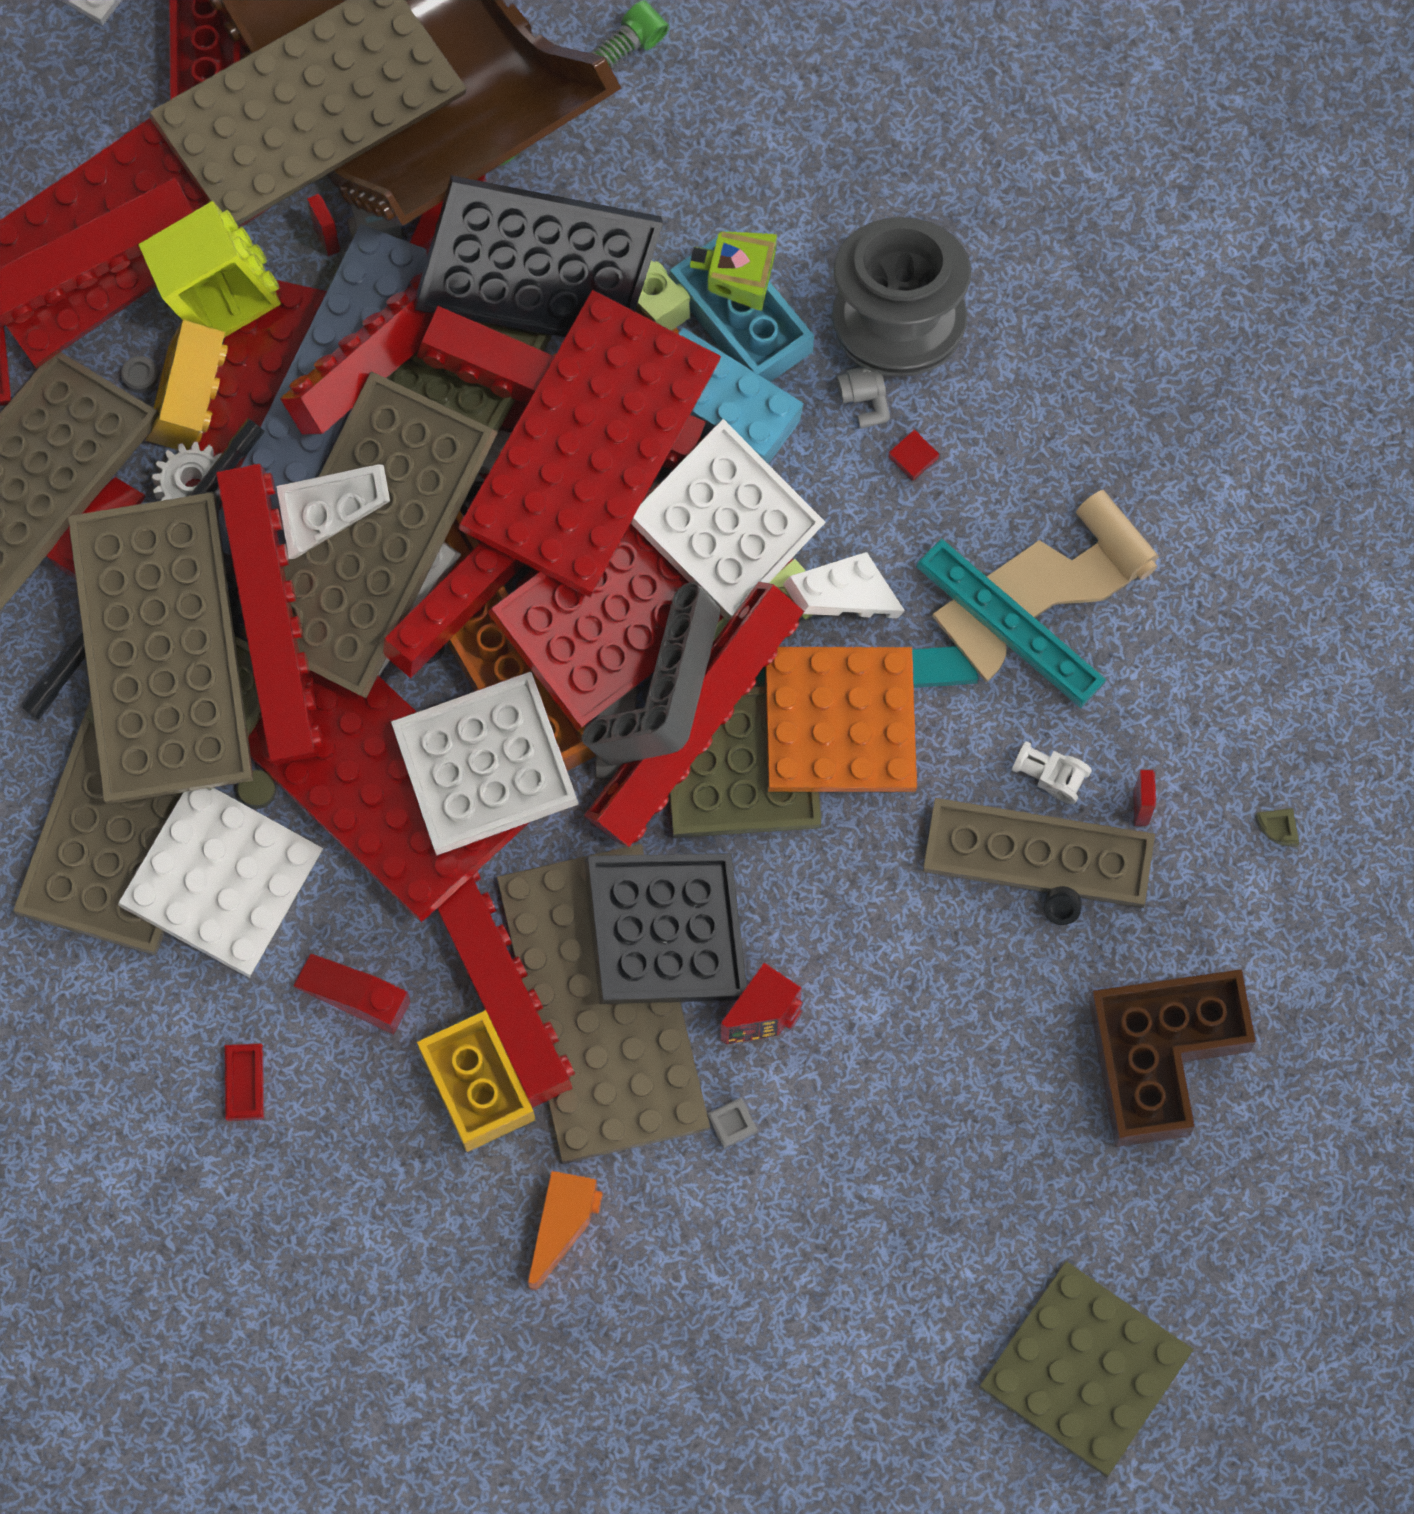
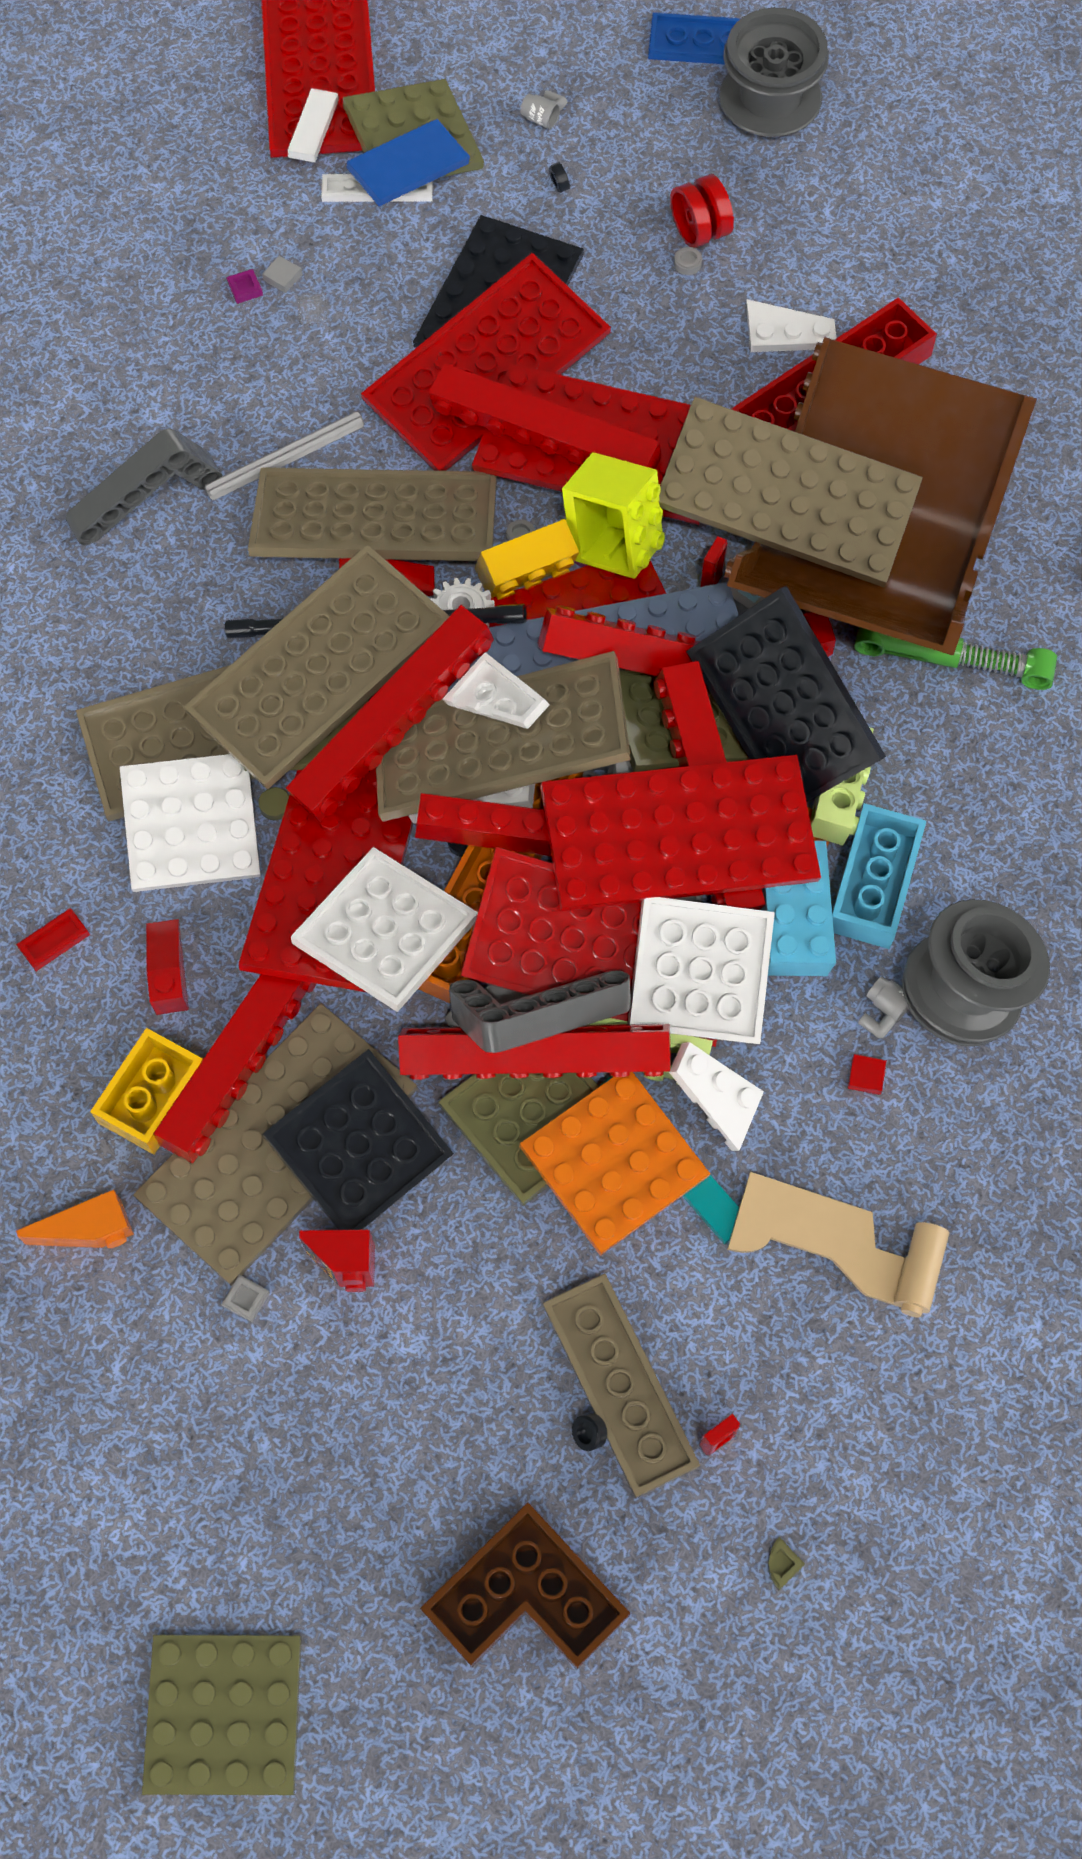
camera: 55 degrees right, 5 degrees down
(738, 266) = (903, 844): lime torso -> none
(1011, 623) = (787, 1236): teal tile -> none
(1053, 772) = (693, 1353): white connector -> none

